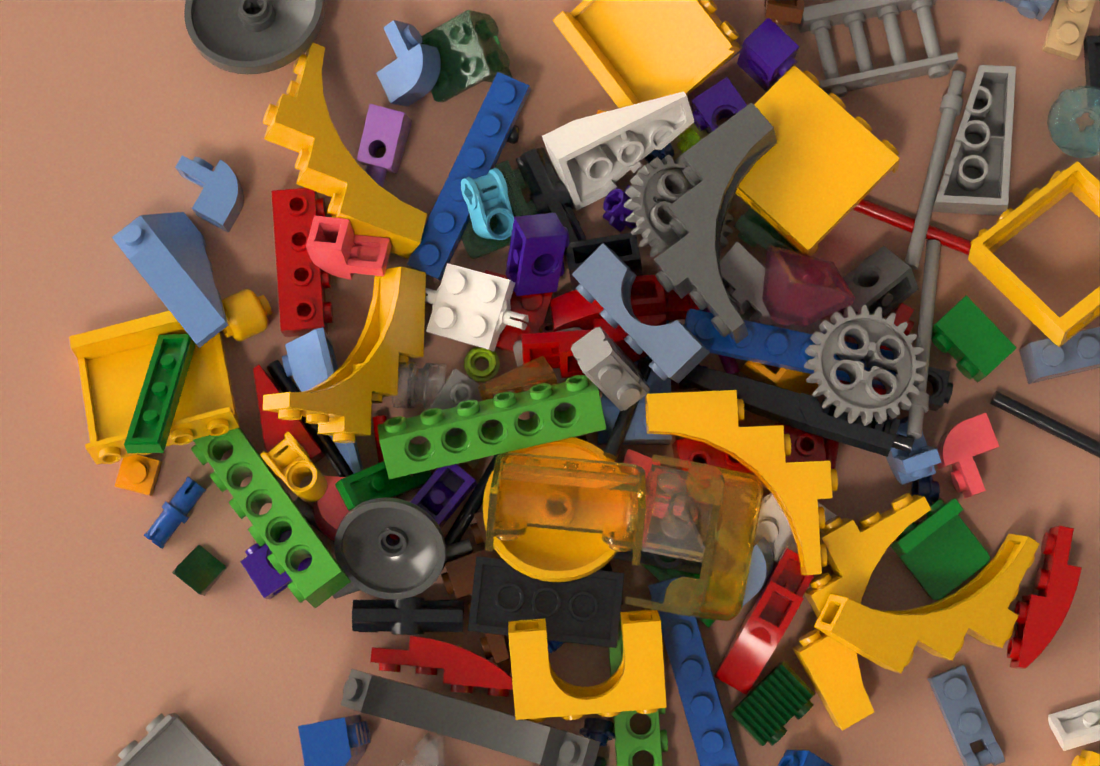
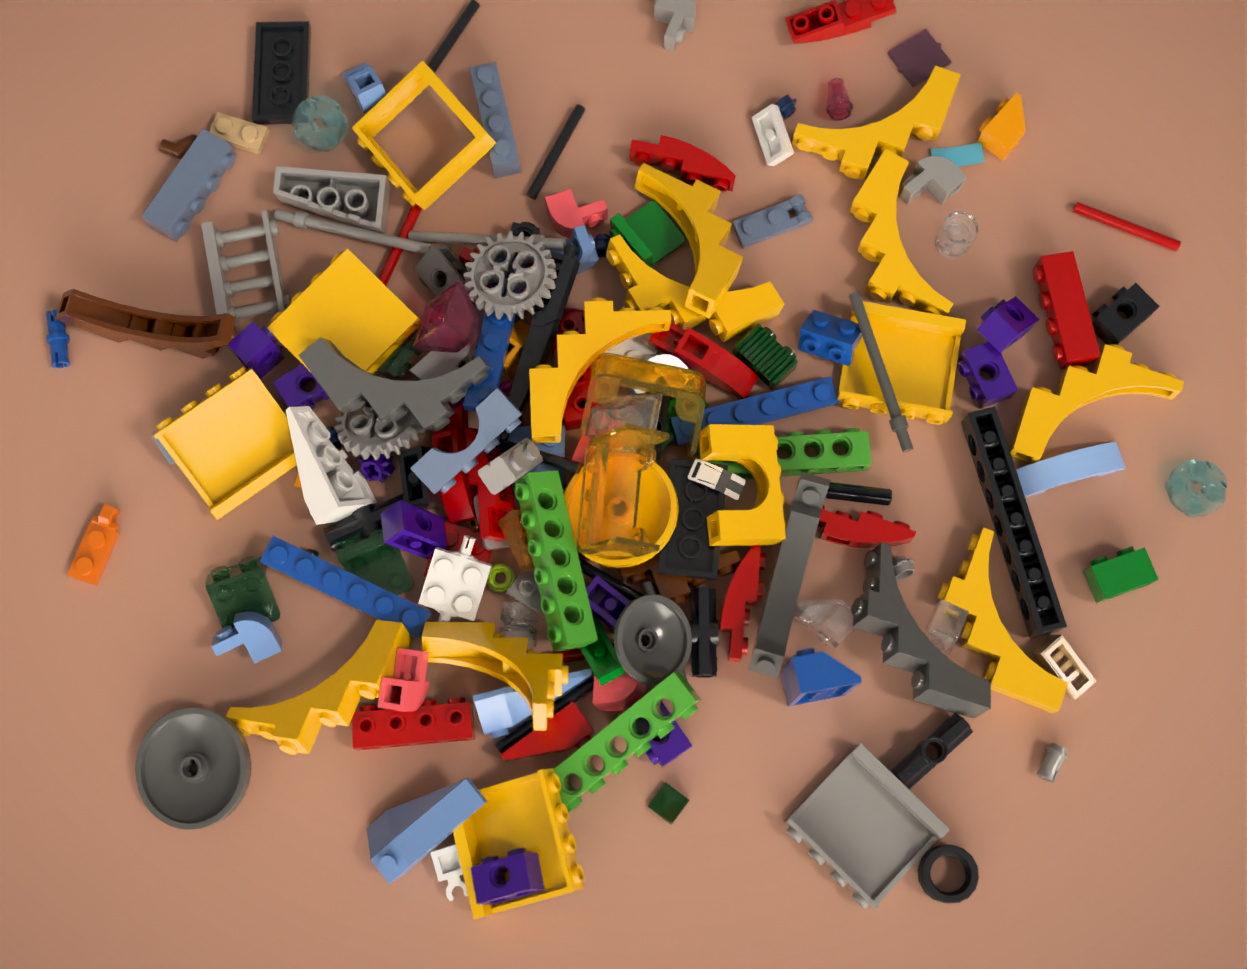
camera: 90 degrees left, 5 degrees down
(106, 356) = (524, 877): none -> dark purple brick
(131, 306) = (449, 868): none -> white plate
(138, 474) = (591, 858): light orange plate -> none
(160, 394) = (525, 832): green tile -> none
(175, 512) = (621, 826): blue pin -> none
(221, 193) = (351, 793): medium blue brick -> none
(245, 314) = (455, 767): yellow head -> none
(292, 464) = (583, 722): yellow piece -> none
(383, 129) = (304, 652): medium lavender torso -> none
(485, 198) = (373, 567): medium azure piece -> none
(597, 633) = (717, 478): none -> sticker
(598, 730) = (789, 485): dark blue plate -> none
(687, 140) = (326, 413): clear neon green plate -> none
(971, 340) = (488, 207): green brick -> none

